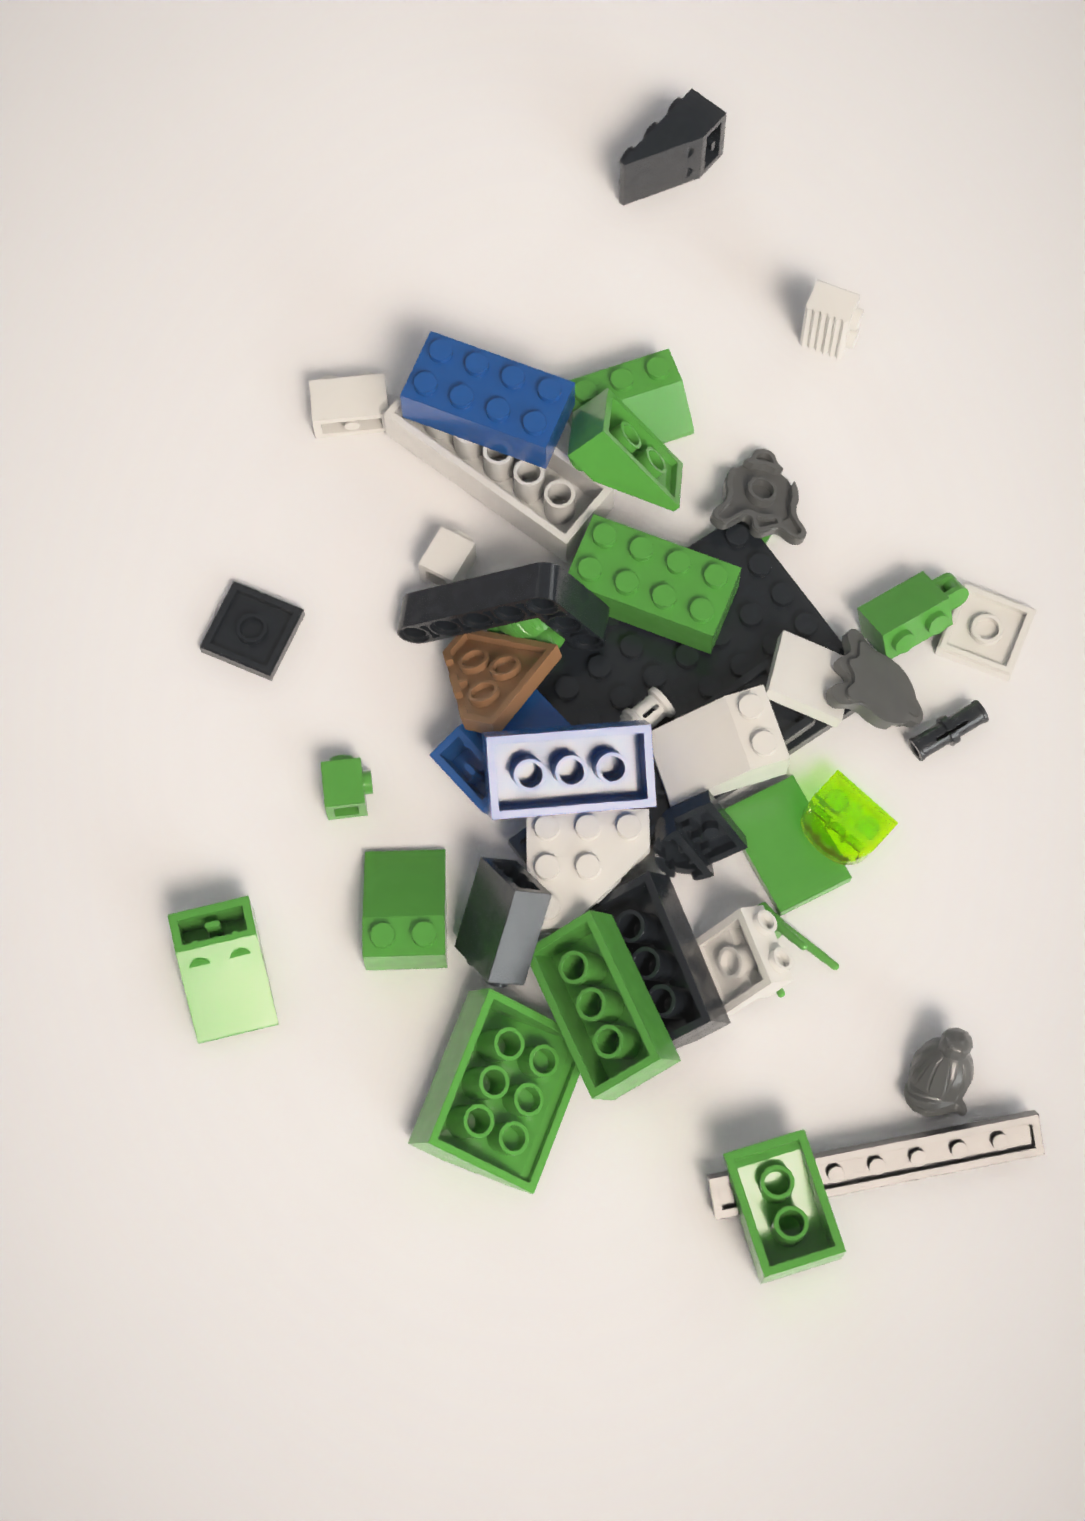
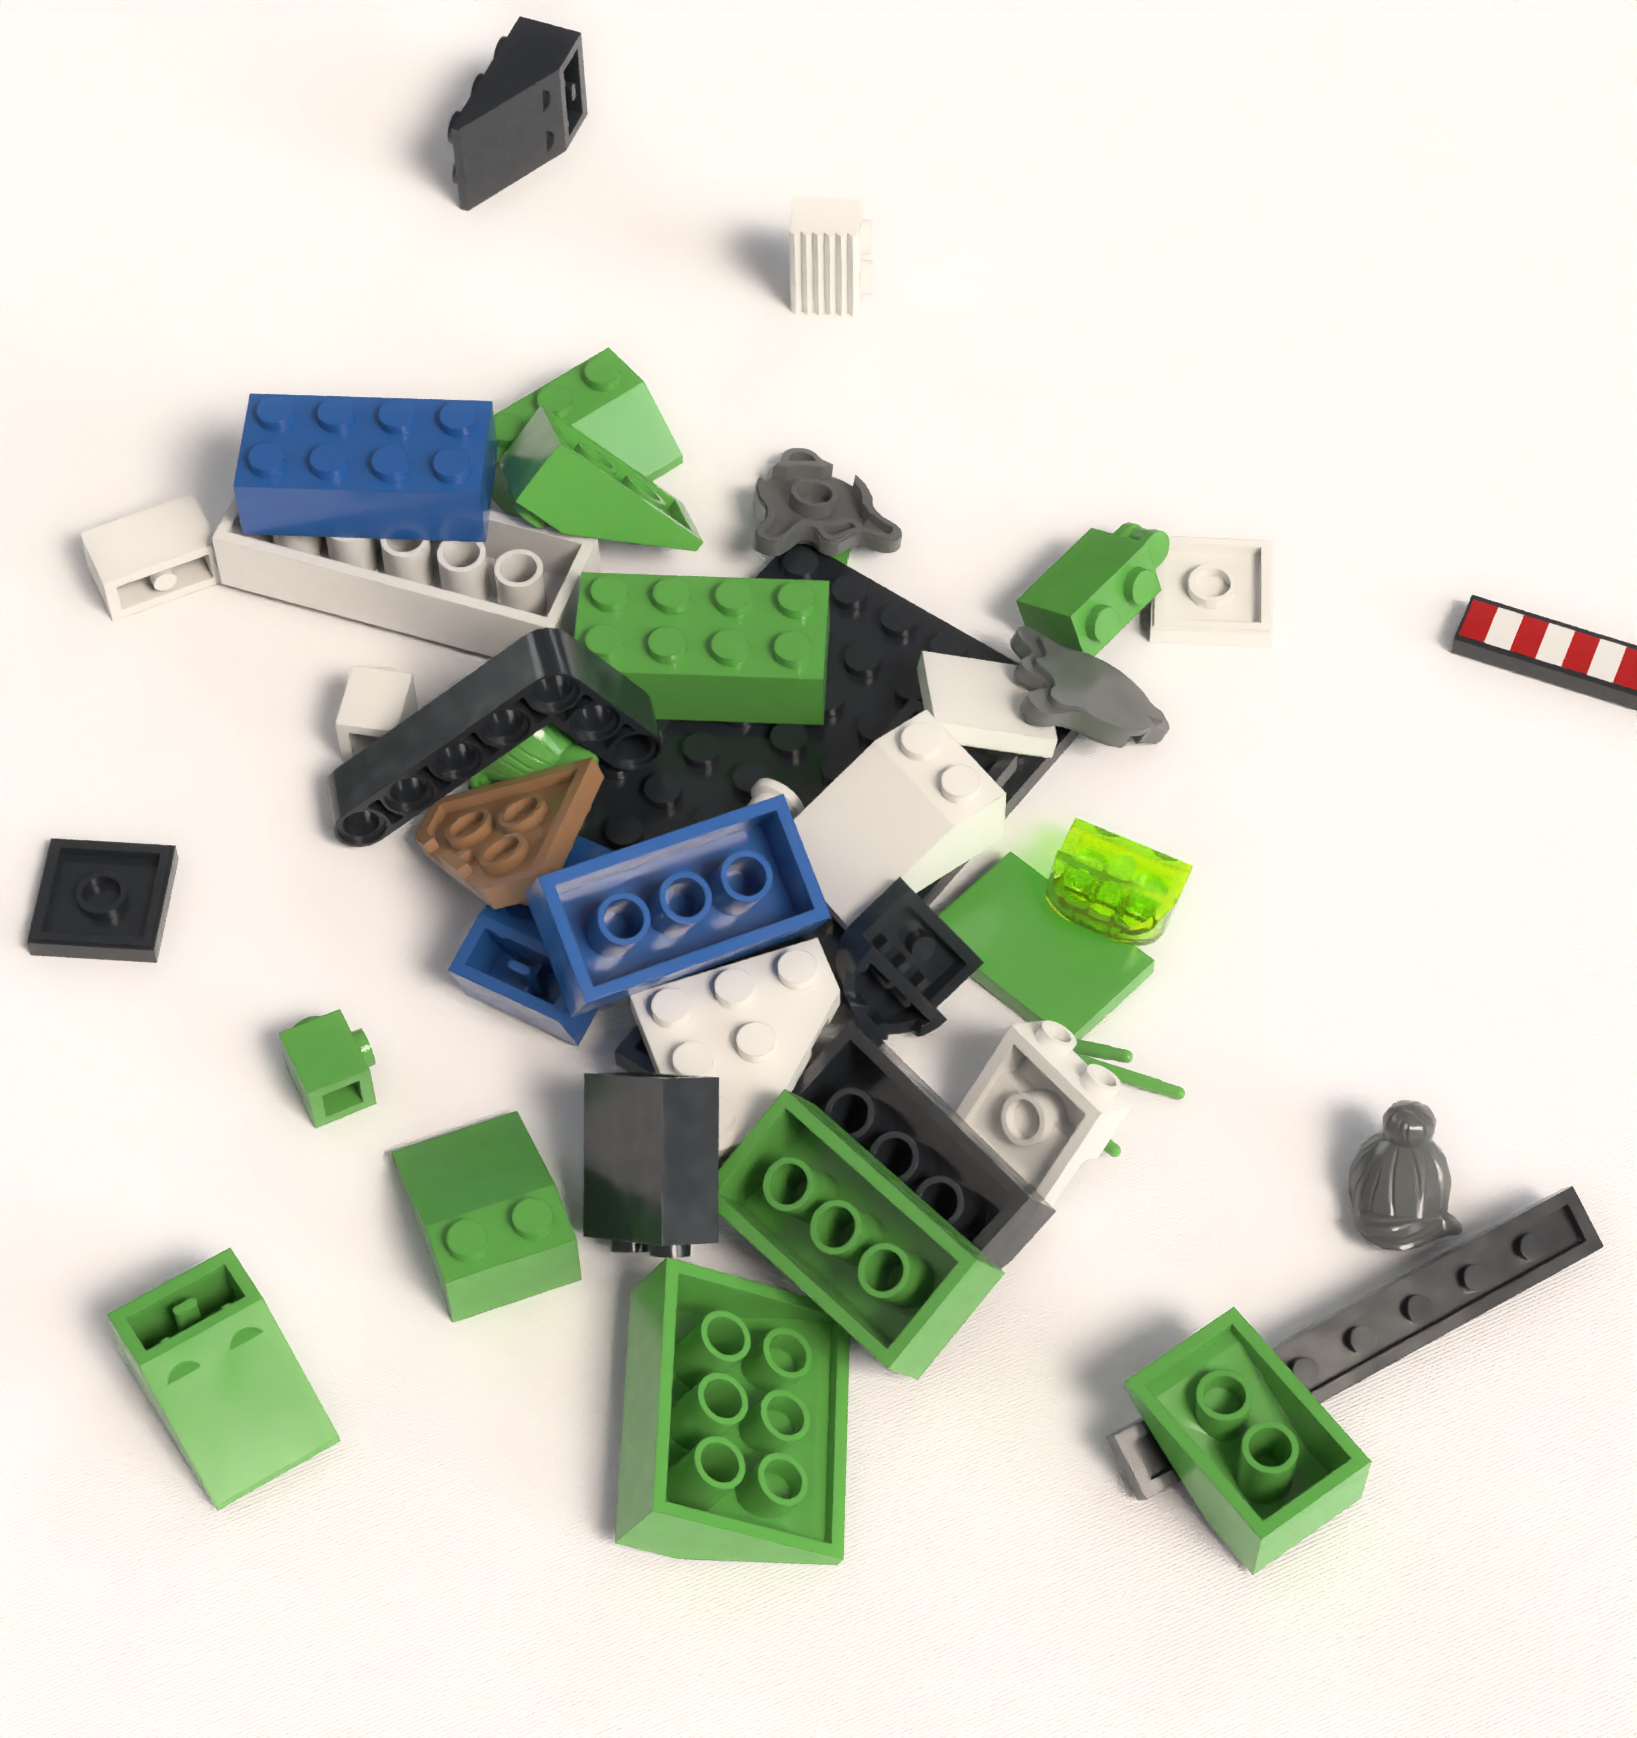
camera: 20 degrees left, 15 degrees down
(948, 730) = (1236, 704): black pin -> none

